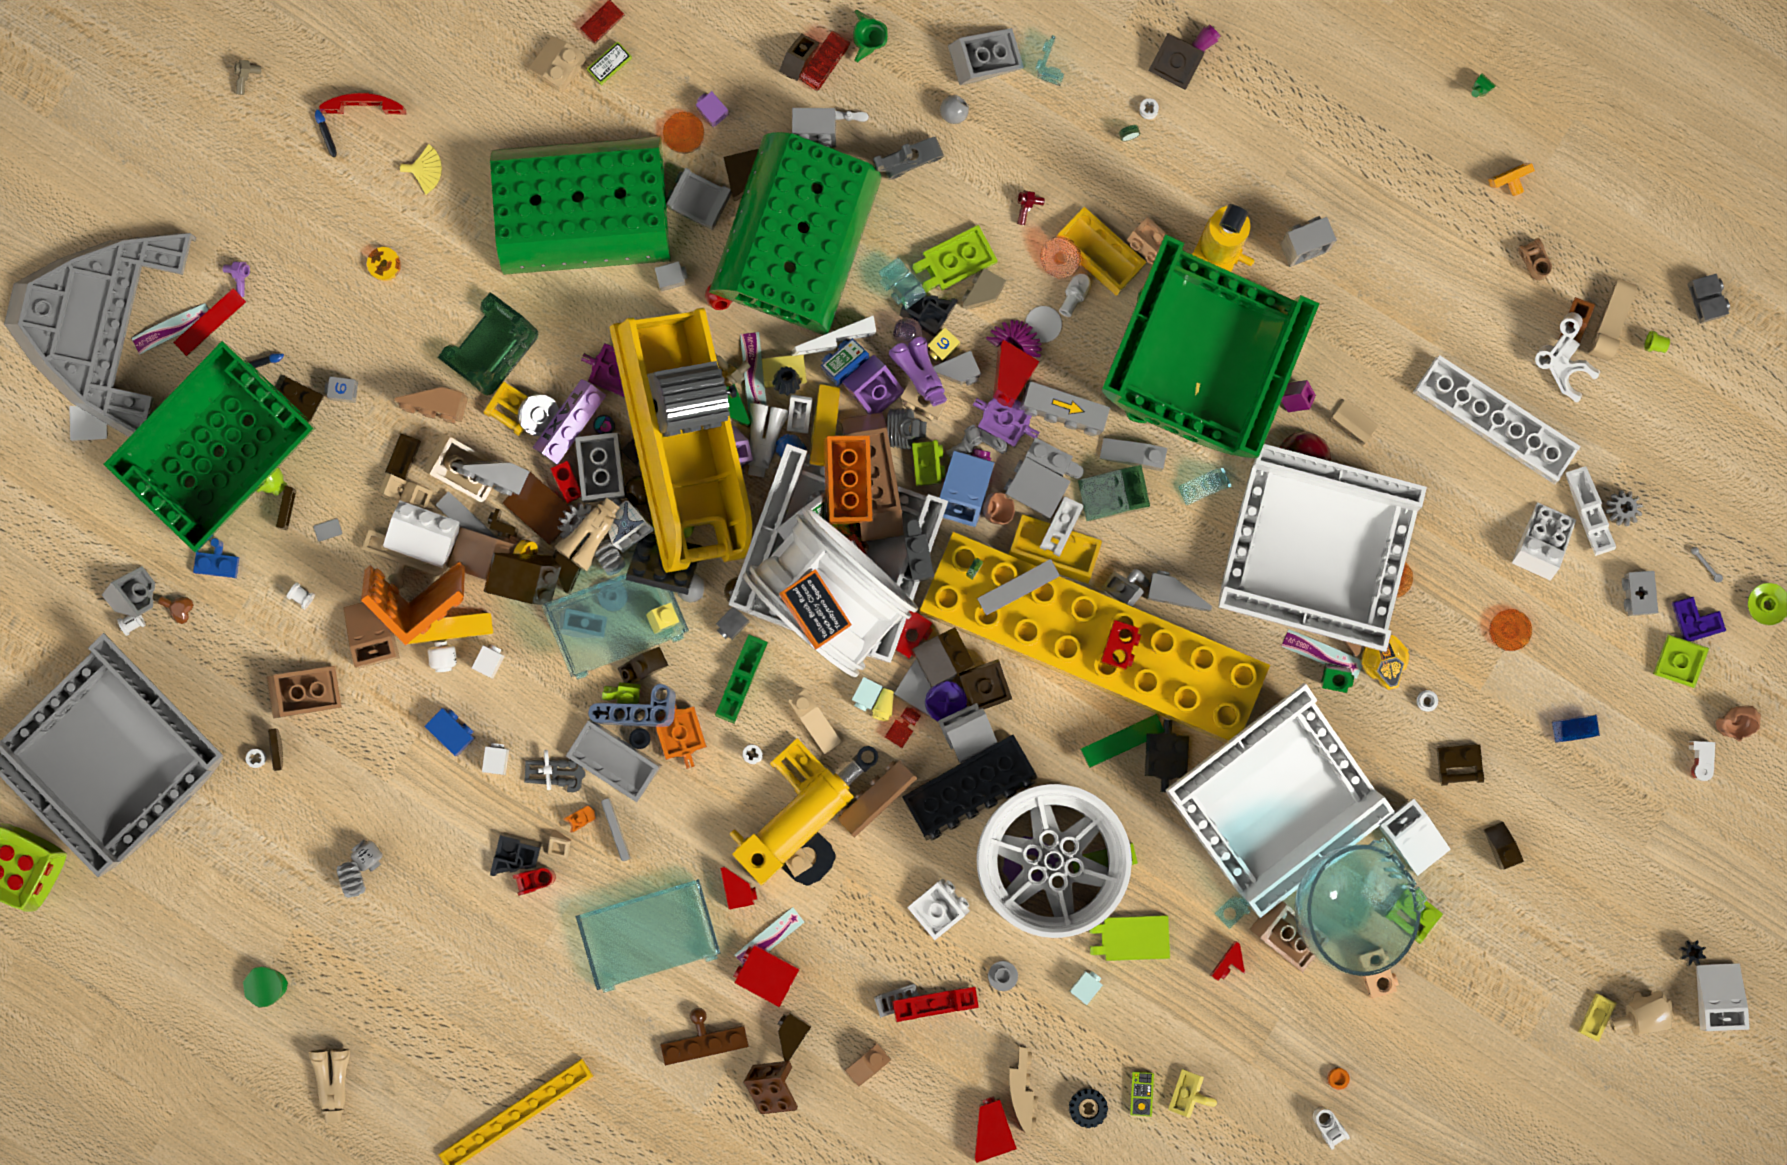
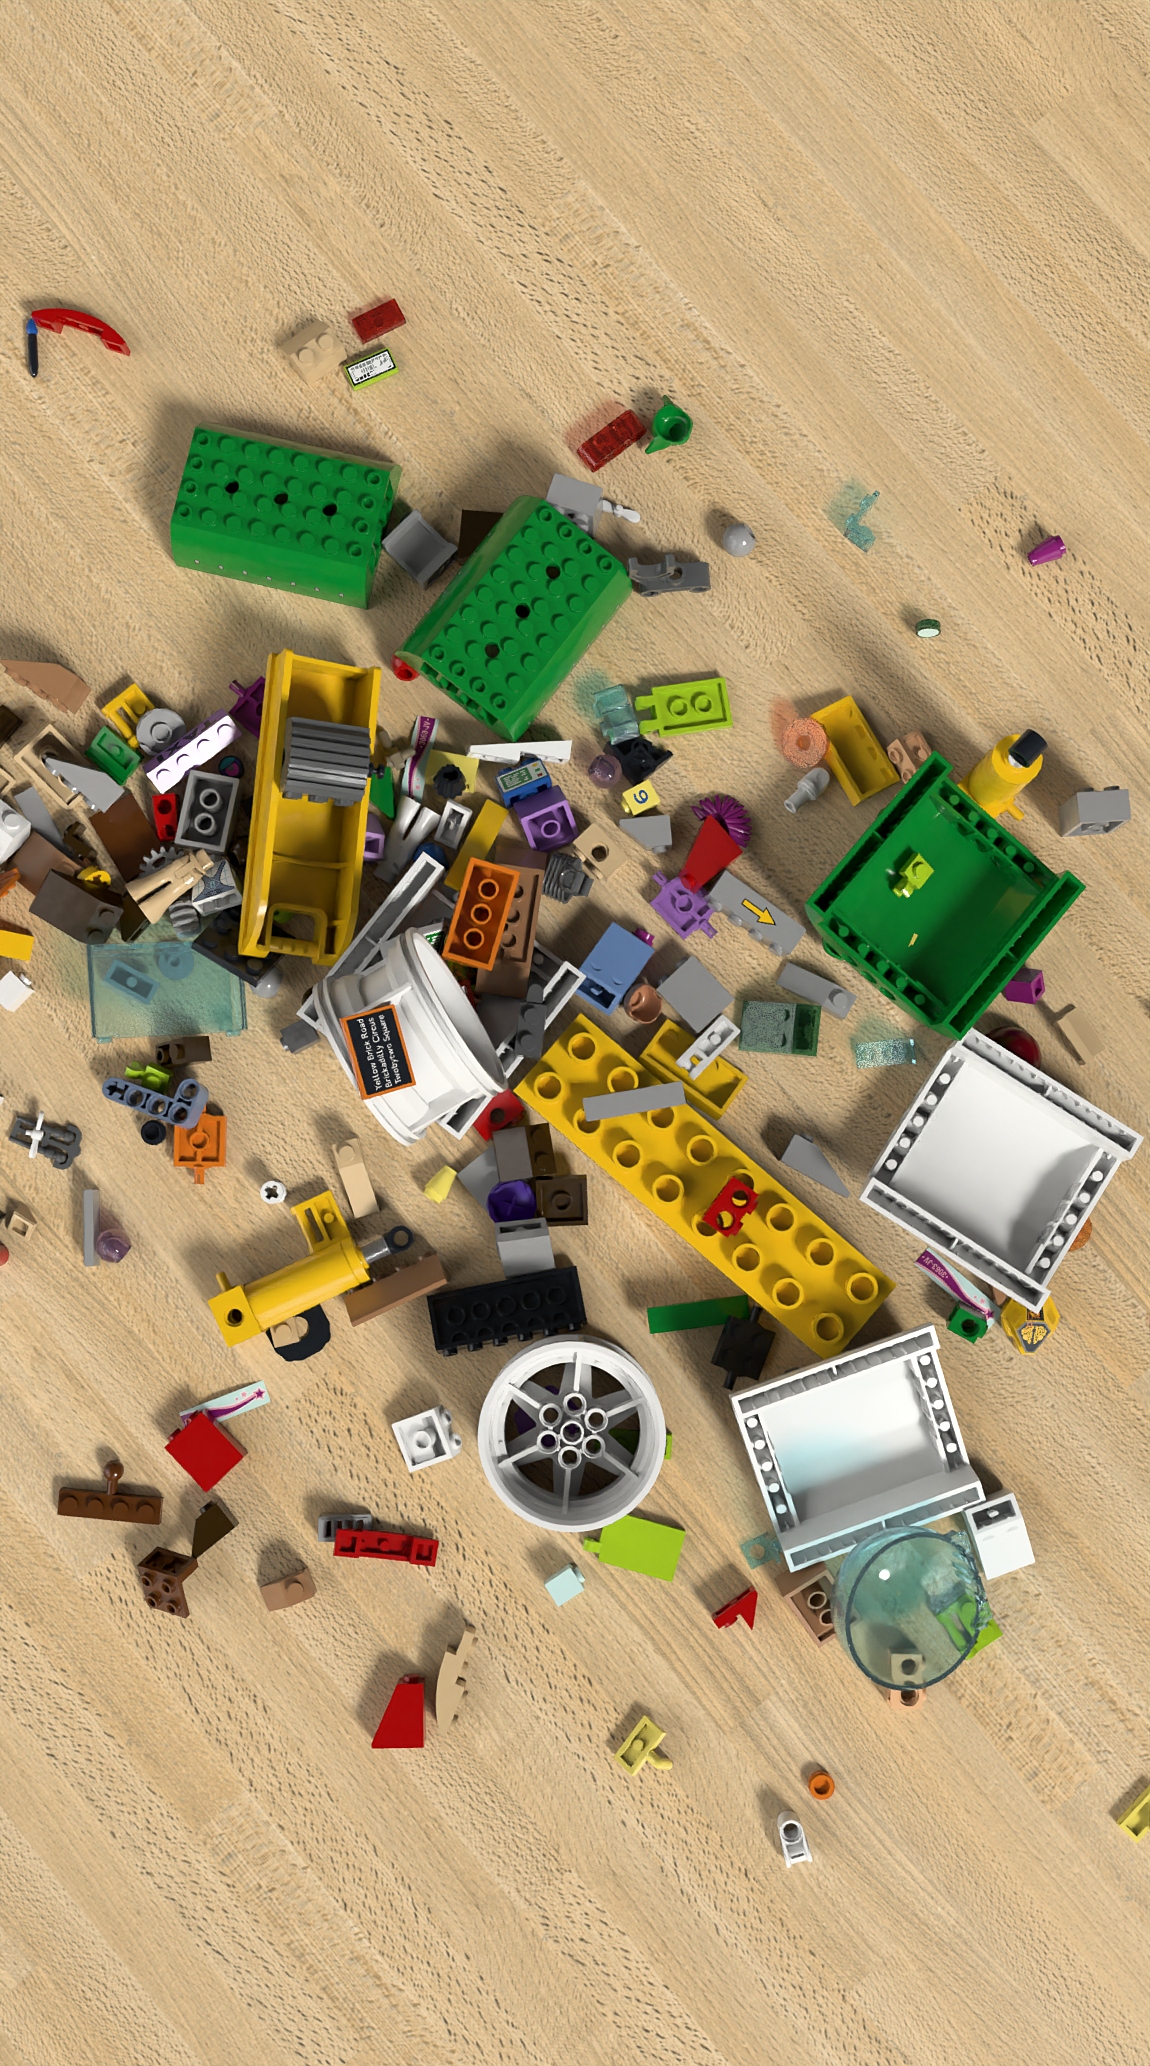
camera: 20 degrees right, 0 degrees up
(383, 254) = (42, 502): yellow piece -> none
(426, 169) = (129, 422): light yellow hand -> none
(492, 346) = (135, 641): clear green windscreen -> none
(506, 445) = (114, 755): none -> green plate
(580, 818) = (56, 1201): orange piece -> none
(613, 760) = (115, 1148): light grey slope -> none
(638, 838) = (113, 1245): none -> piece
(648, 935) = (86, 1359): clear light blue windscreen -> none
(662, 618) = (222, 1005): light yellow brick -> none
(671, 276) = (360, 625): light grey brick -> none
(683, 132) = (428, 472): clear orange tile -> none
(711, 108) = (468, 454): medium lavender brick -> none
(737, 890) = (205, 1340): red slope -> none
(741, 679) = (289, 1102): green slope -> none
(798, 56) = (582, 426): dark brown slope -> none
(866, 694) = (424, 1166): light aqua brick -> none
(900, 732) = (449, 1221): clear red plate -> none
(917, 365) = (603, 813): medium lavender piece -> none
(927, 463) = (579, 925): lime bracket -> none
(974, 437) = (642, 914): light grey pin -> none
(974, 568) = (588, 1064): clear green tile -> none
(985, 56) = (792, 491): light grey slope -> none
(985, 291) = (707, 753): dark tan slope -> none
(1003, 976) = (474, 1538): light grey piece -> none
(1027, 200) = (787, 667): dark red piece -> none
(1044, 322) = (764, 811): white sticker -> none
(1054, 459) = (723, 968): light grey hinge -> none
(1099, 1106) = (509, 1722): black bush -> none
(1124, 588) = (757, 1141): light grey plate -> none
(1142, 1094) = (589, 1728): tile -> none
(1155, 109) = (954, 616): white bush -> none
(1177, 61) = (1007, 564): dark brown plate -> none
(1181, 335) = (913, 874): none -> lime plate
(1433, 697) = (1067, 1387): white plate -> none
(1460, 757) = (1080, 1459): dark brown plate -> none
(1503, 846) = (1098, 1579): dark brown slope -> none

